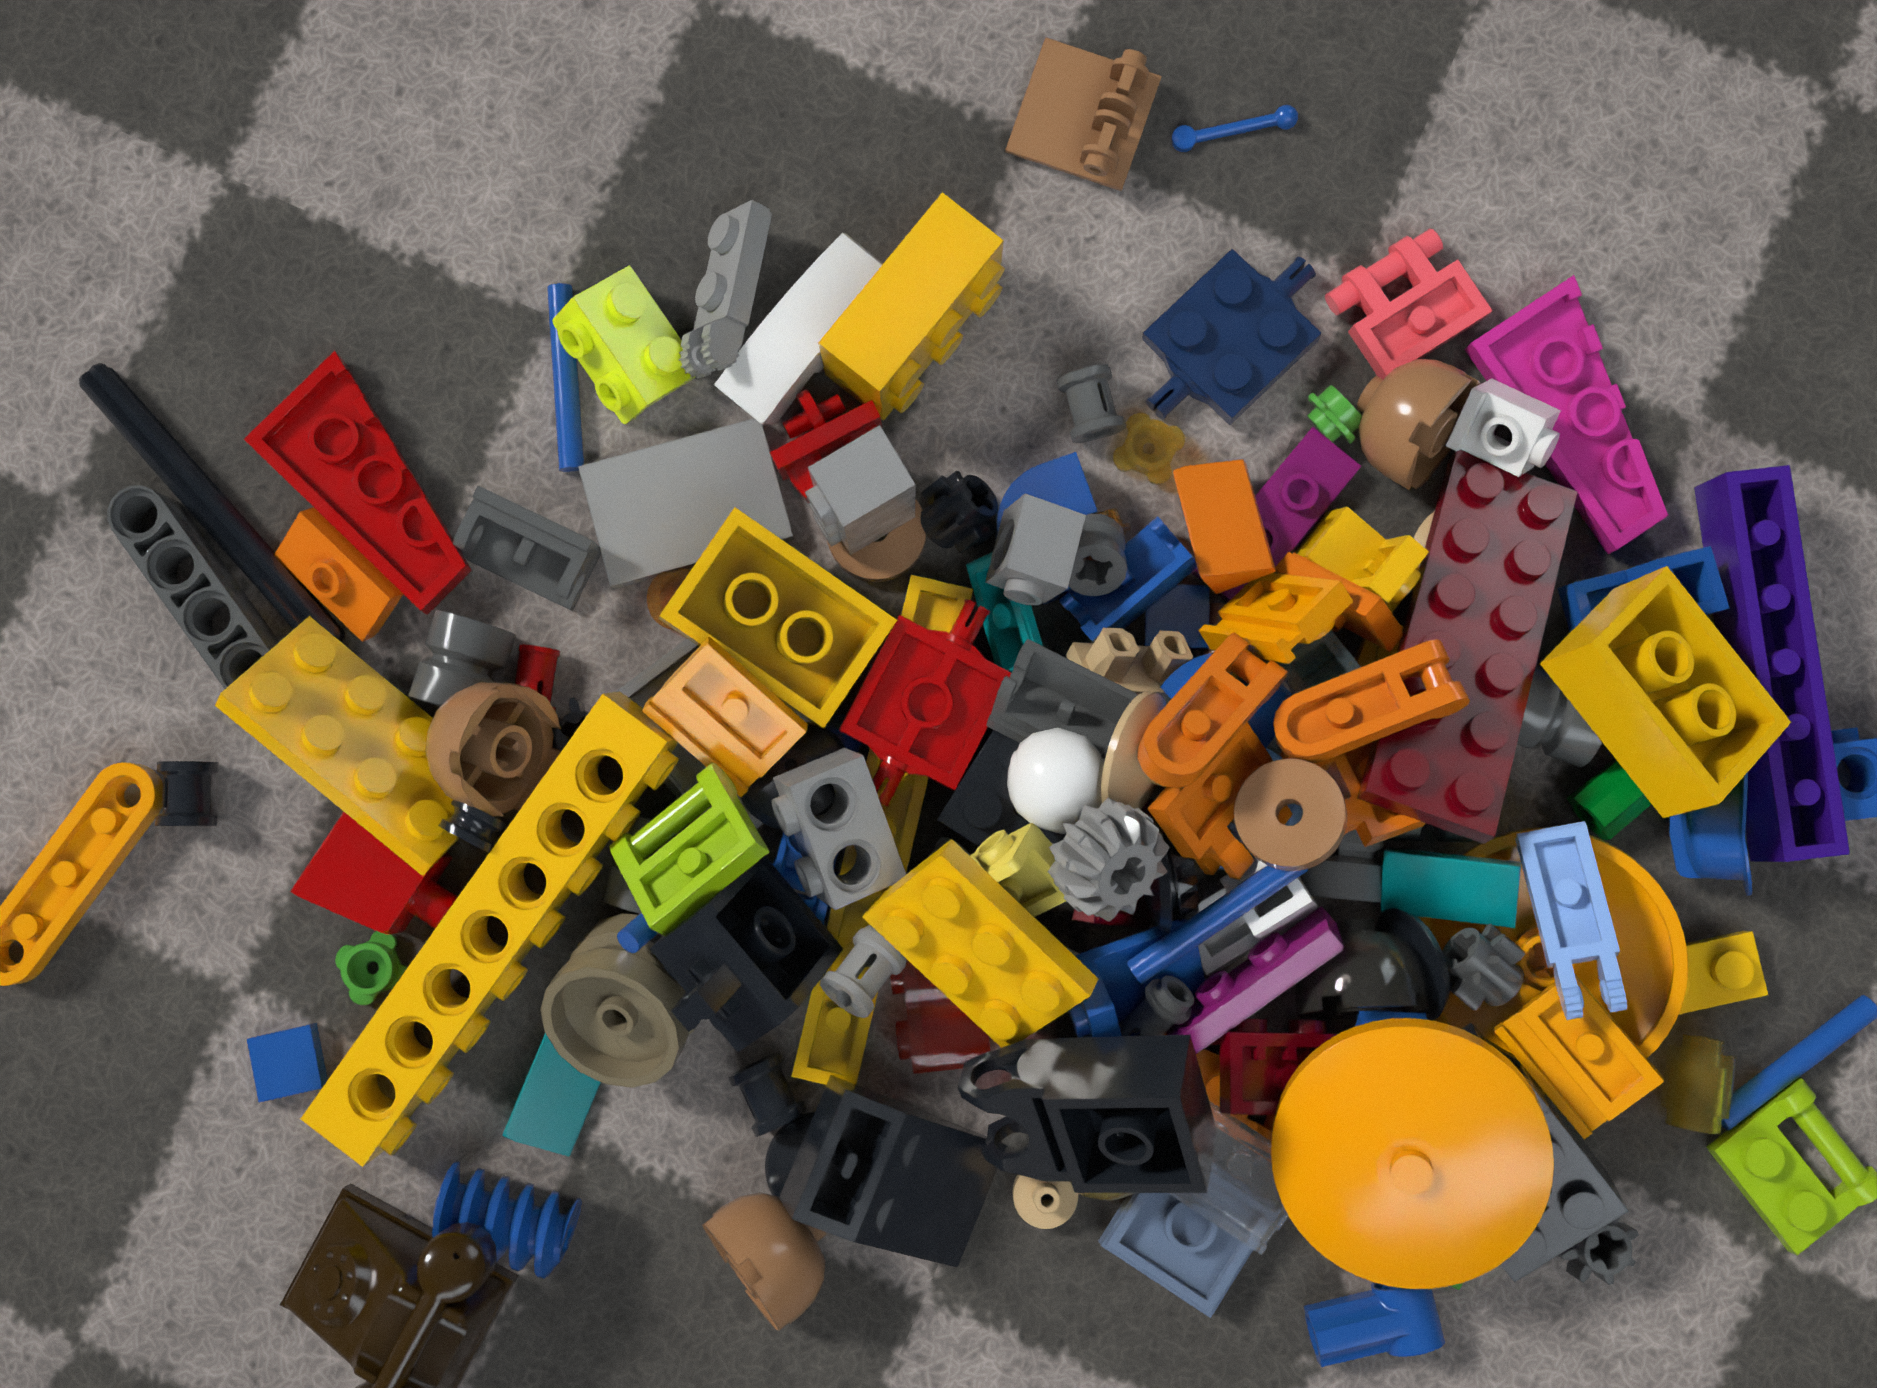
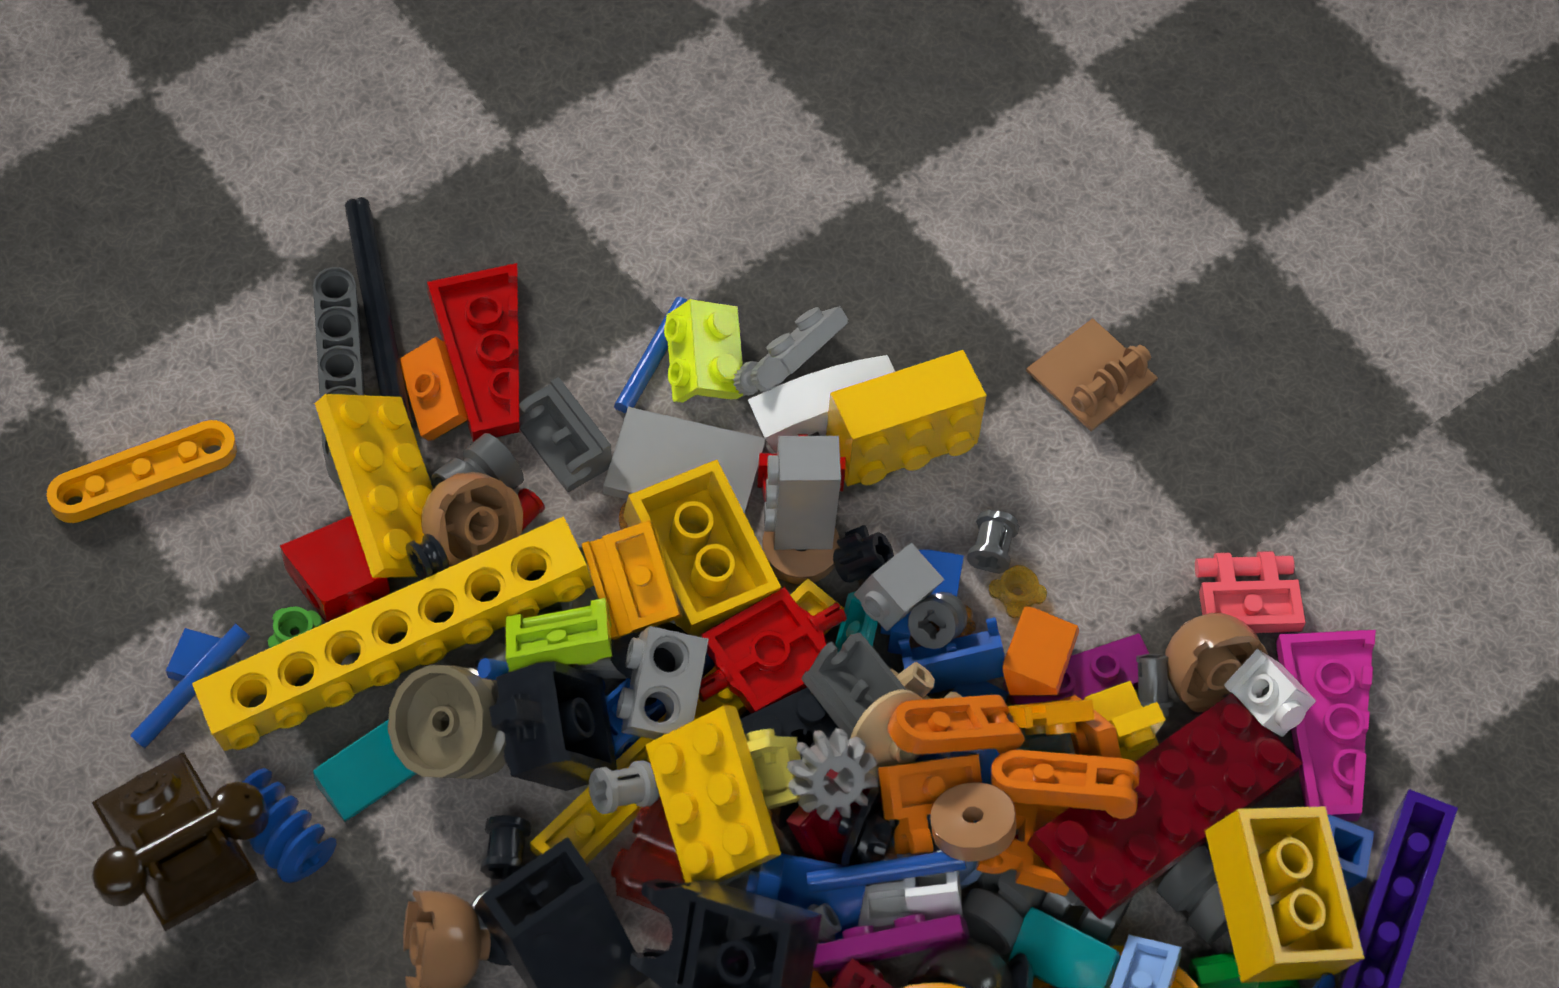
camera: 25 degrees right, 25 degrees down
(186, 793) = (249, 463): black bush -> none
(300, 1096) = (184, 691): none -> blue bar
(1054, 778) = (824, 711): white hair -> none
(1185, 137) = (1153, 423): blue hinge -> none
(1230, 337) = (1114, 553): dark blue plate -> none
(1334, 415) = (1156, 630): bright green plate -> none
(1365, 487) = (1153, 681): none -> dark grey pin

